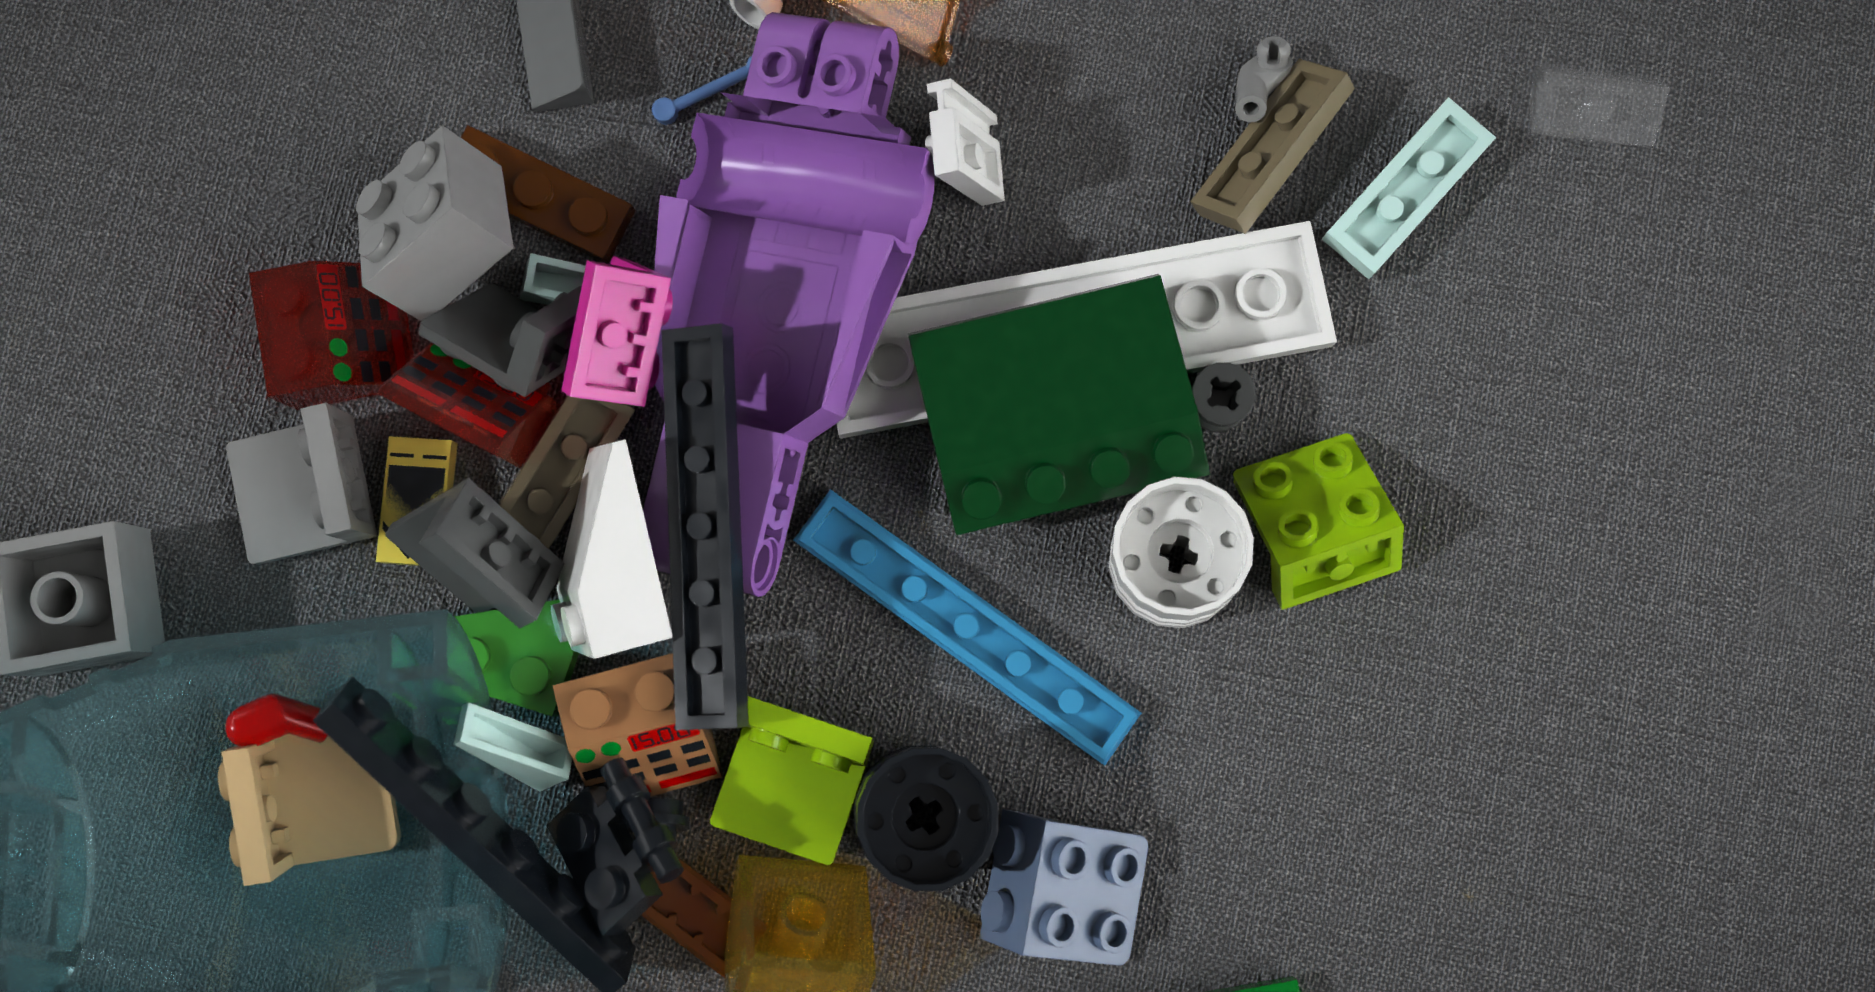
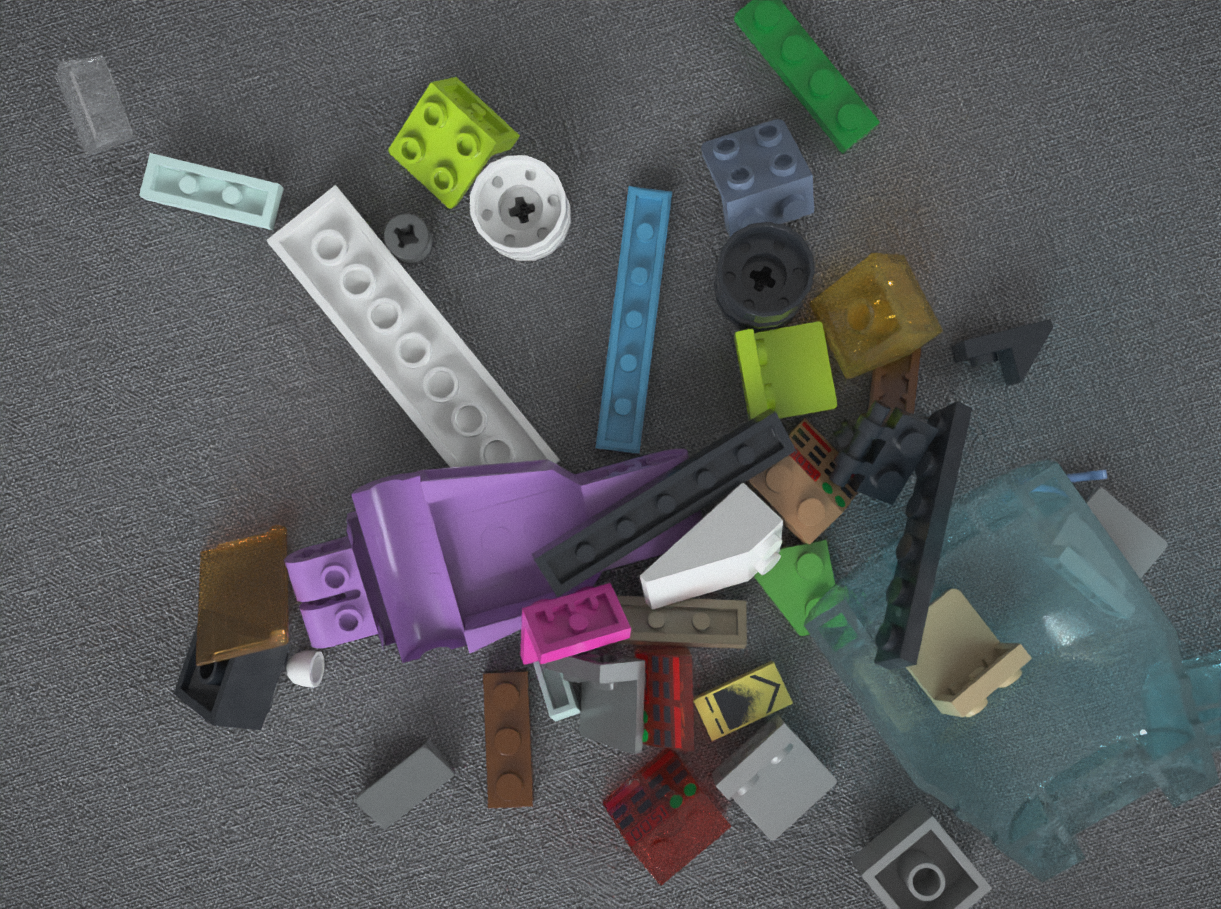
camera: 120 degrees left, 5 degrees up
(272, 718) = (924, 701): red arm -> none
(433, 224) = (567, 784): light grey brick -> none
(479, 553) = (755, 633): dark grey bracket -> none
(514, 747) = (858, 547): light aqua piece -> none
(667, 111) = (408, 688): medium blue hinge -> none
(962, 143) = (334, 479): white plate -> none
(1058, 403) = (468, 331): dark green slope -> none
(1261, 76) = (187, 321): light grey arm -> none
(1273, 145) = (228, 289): dark tan plate -> none

